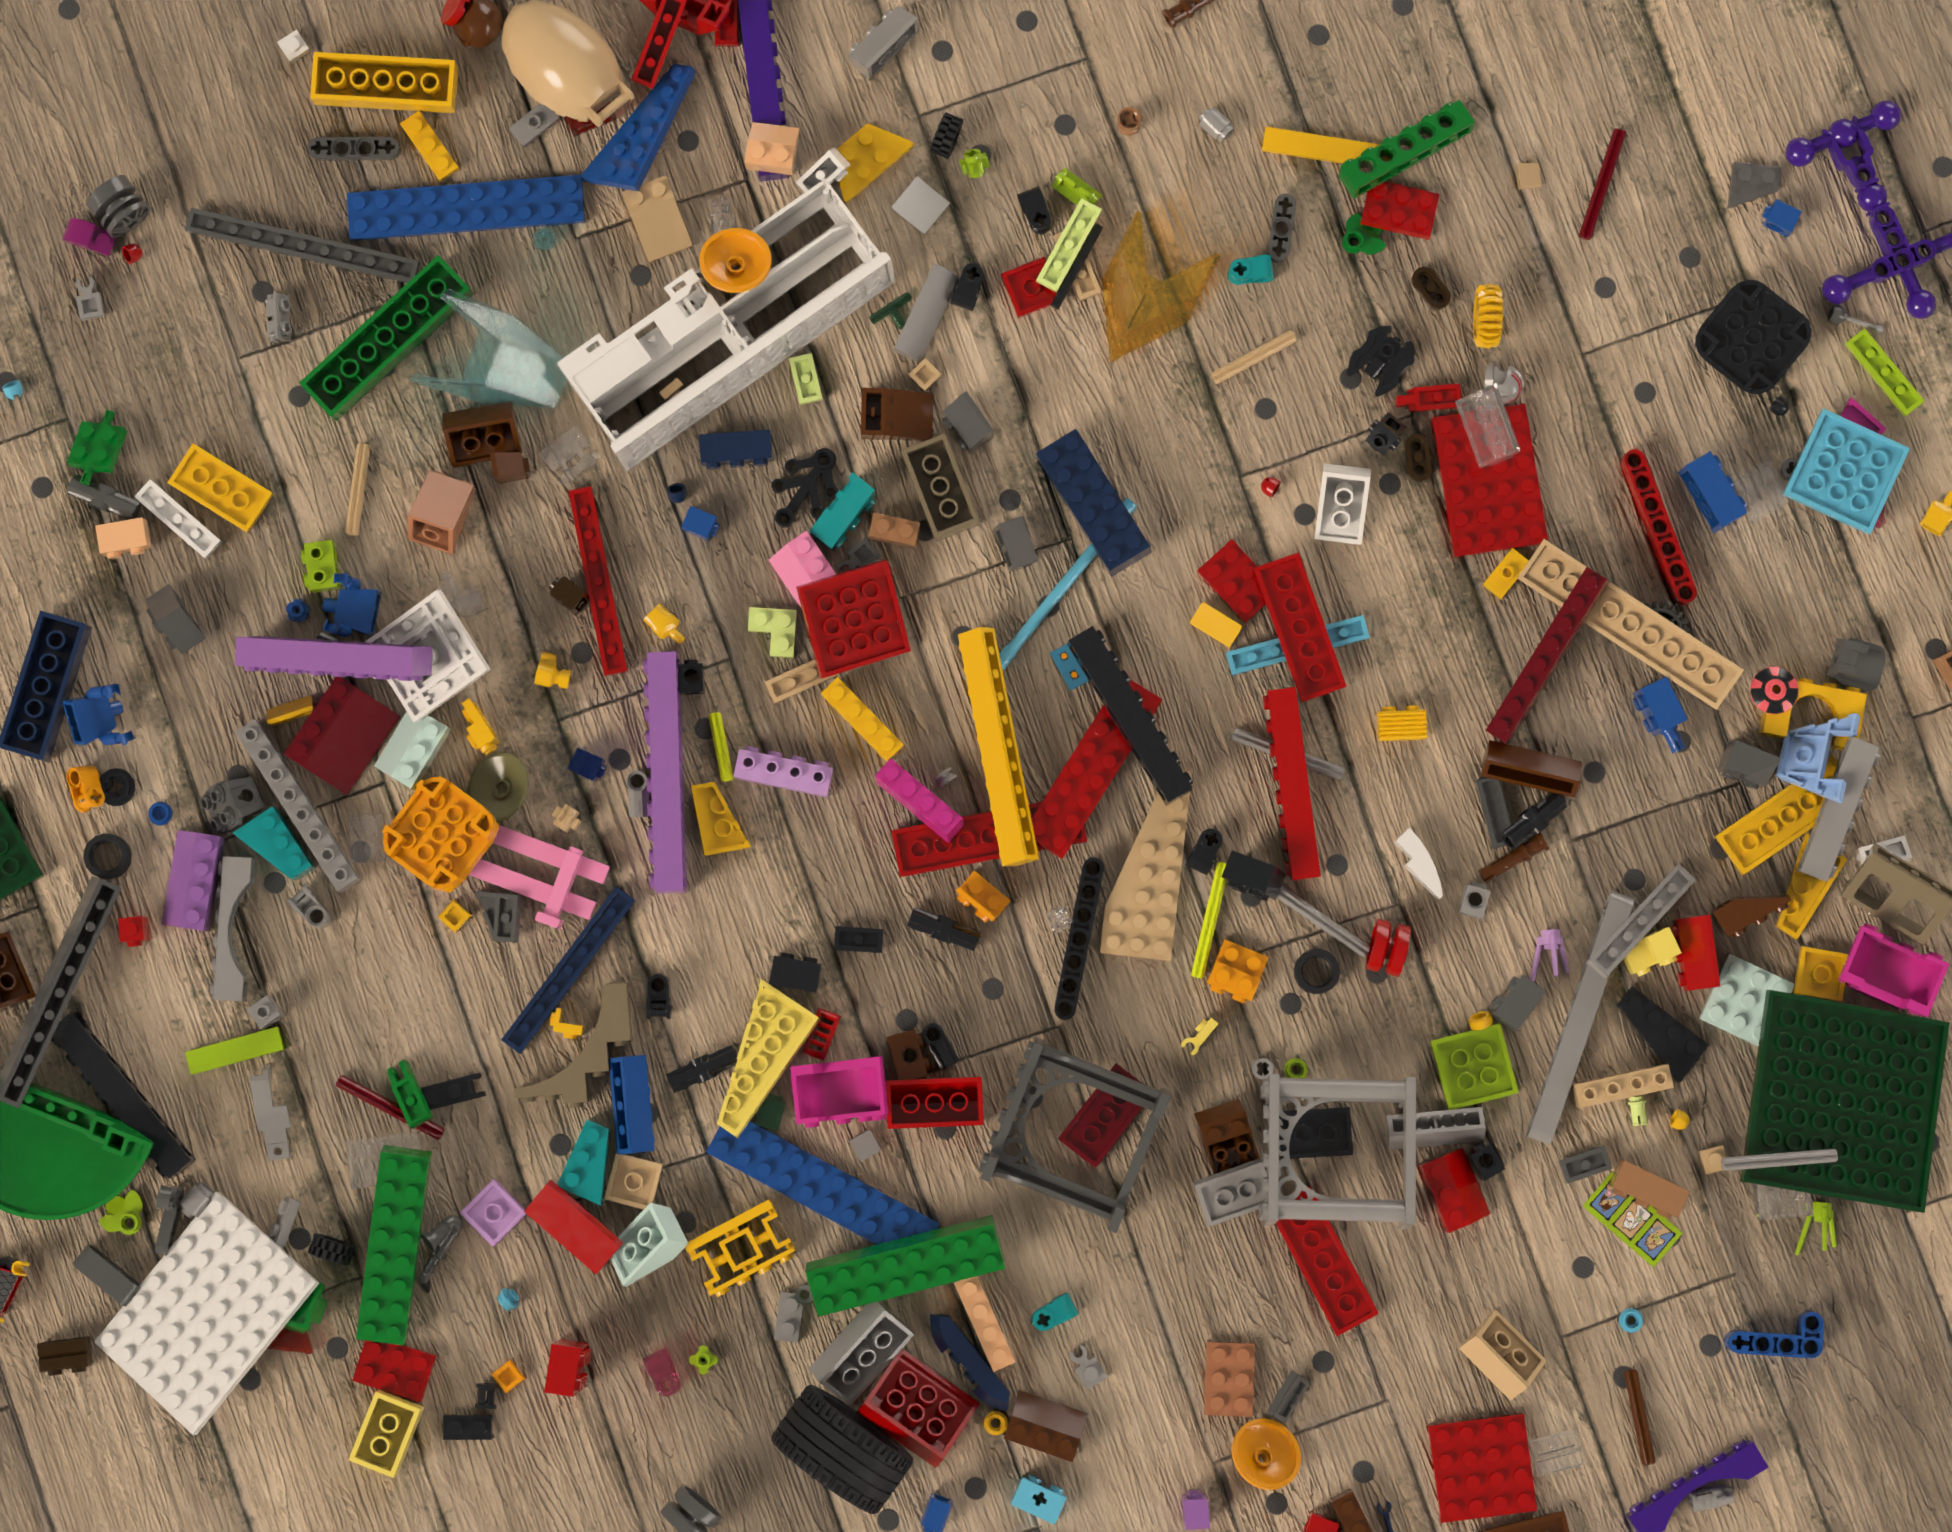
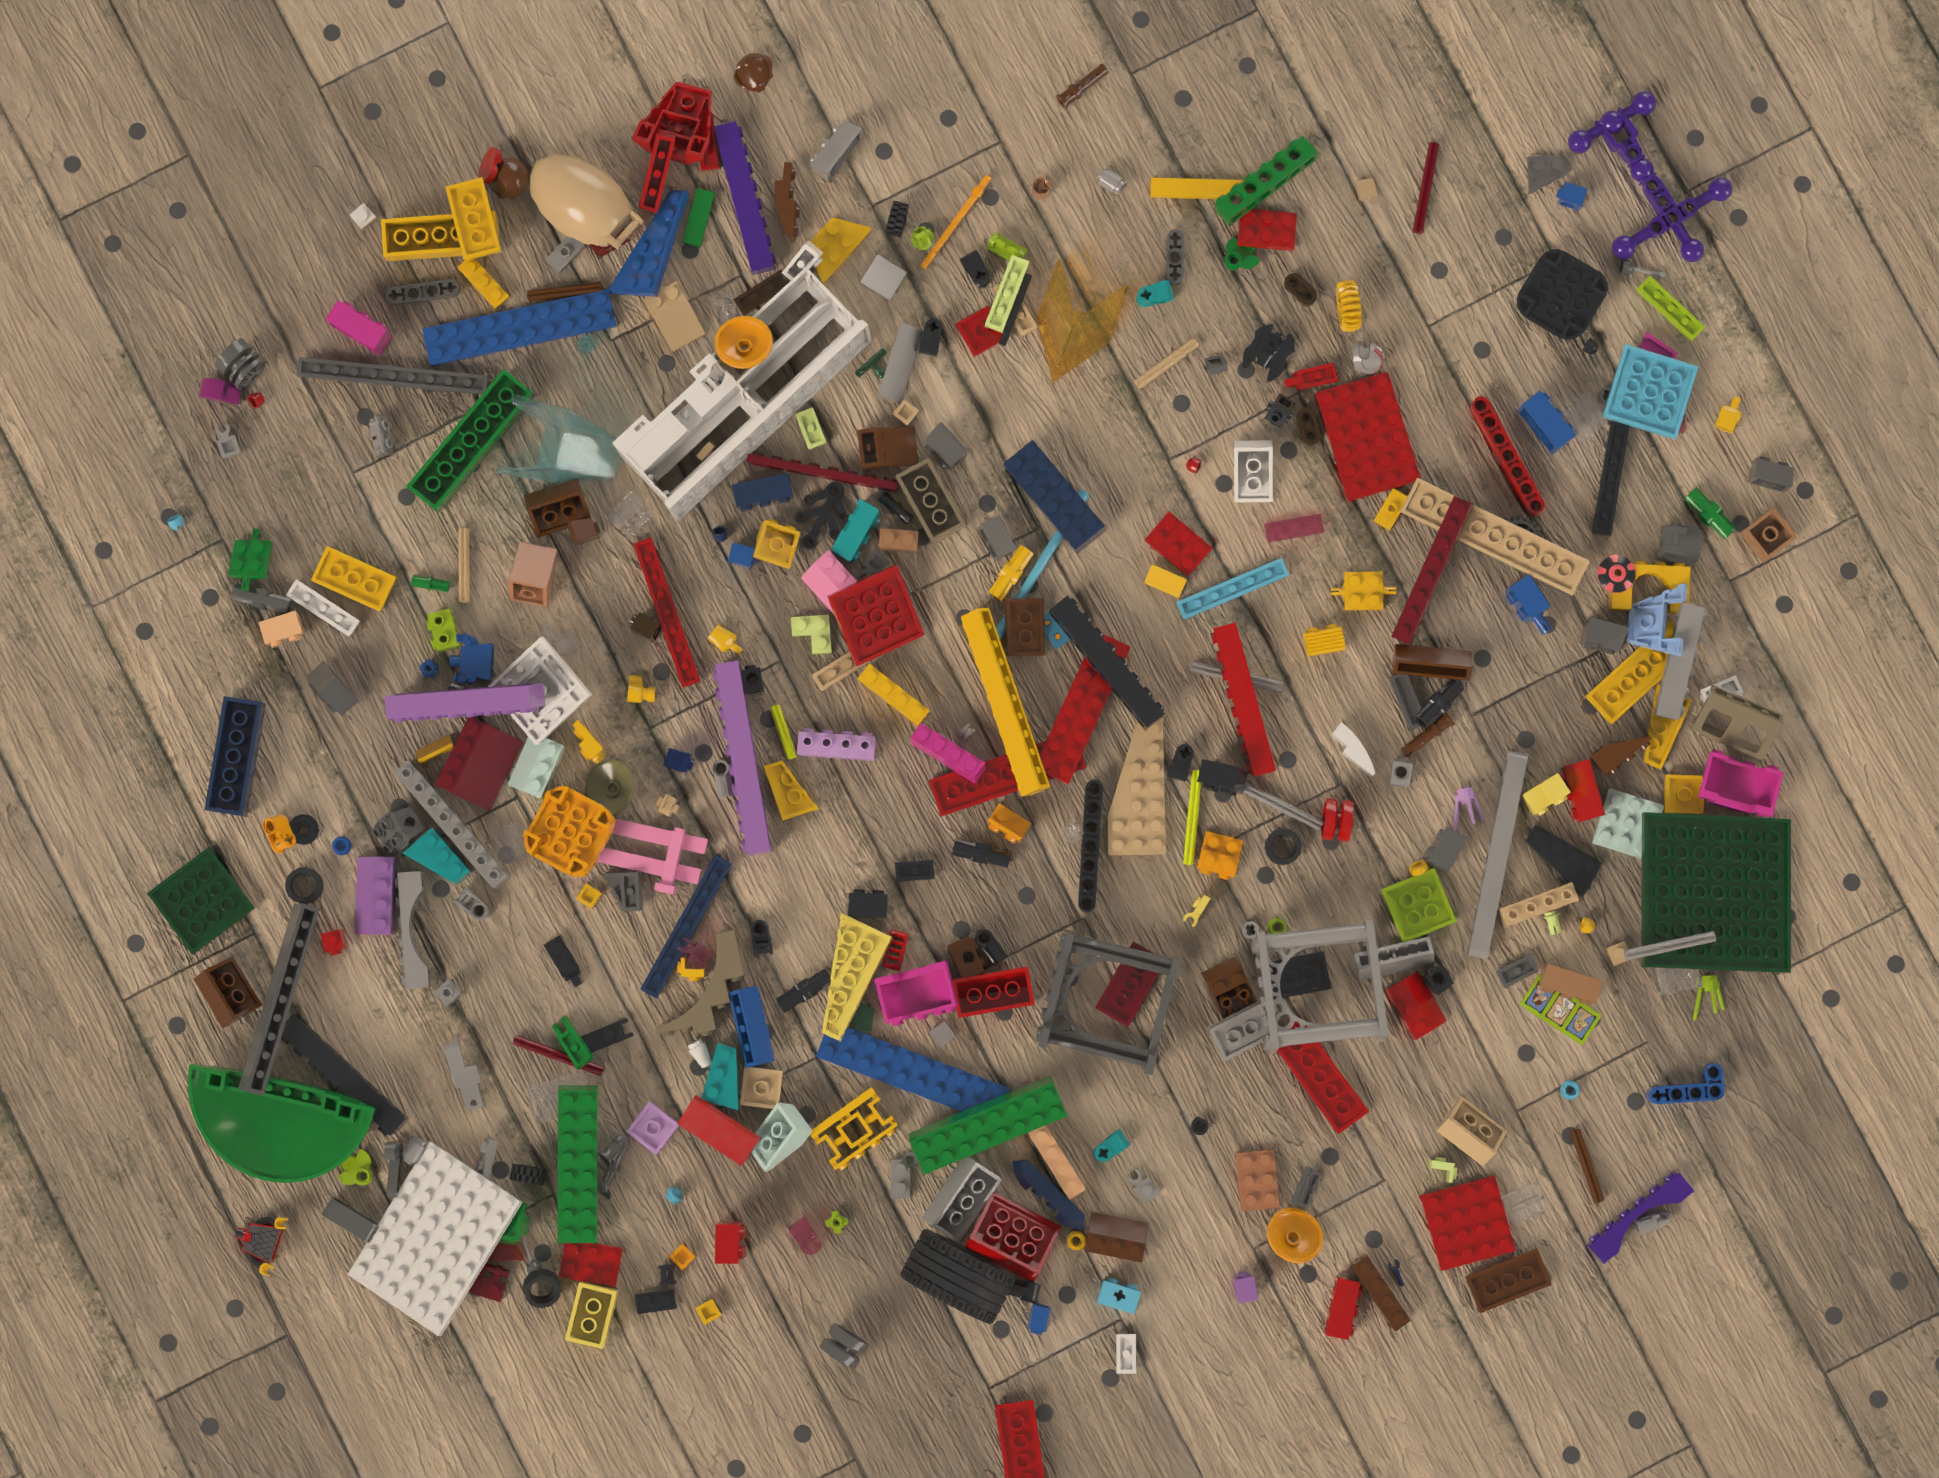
camera: 10 degrees left, 0 degrees up
(65, 1354) = (326, 1287): dark brown brick -> none
(94, 716) = (278, 775): blue torso -> none
(234, 1050) = (427, 1027): lime tile -> none
(264, 1381) = (489, 1287): none -> dark red plate
(269, 180) = (359, 327): none -> dark pink brick
(313, 506) = (430, 583): none -> green axle
(323, 1362) = (532, 1264): none -> hinge
(329, 1408) = (541, 1301): none -> black tyre
(413, 991) = (563, 960): none -> black hinge
(426, 66) = (473, 219): none -> yellow plate
(525, 170) = (563, 291): none -> reddish brown axle
(530, 1448) = (708, 1311): none -> yellow plate
(564, 1127) = (700, 1052): none -> white cone
(576, 1005) = (696, 953): none -> clear pink plate
(703, 102) = (698, 217): none -> green tile
(743, 514) = (776, 543): none -> yellow plate
(767, 204) = (761, 293): none -> dark brown plate
(771, 148) = (759, 248): light nougat slope -> none
(812, 104) = (787, 208): none -> reddish brown slope
(822, 437) = (830, 473): none -> dark red plate
(896, 490) = (895, 508): none -> black pin
(924, 1476) = (1025, 1290): none -> black piece
(1027, 589) = (1011, 573): none -> yellow piece
(1034, 657) = (1024, 627): none -> reddish brown tile
(1049, 117) = (976, 192): none -> light orange bar
(1171, 1296) = (1201, 1121): none -> black bush
(1299, 627) = (1232, 574): red plate -> none
(1314, 366) = (1215, 364): none -> dark grey plate
(1383, 581) = (1293, 528): none -> clear pink plate
(1458, 669) = (1363, 590): none -> yellow plate
(1459, 1390) = (1440, 1163): none -> yellowish green bracket
(1488, 426) = (1360, 394): clear slope -> none
(1641, 921) = (1535, 771): light grey plate -> none
(1782, 572) = (1610, 478): none -> black plate
(1900, 631) = (1710, 513): none -> green piece

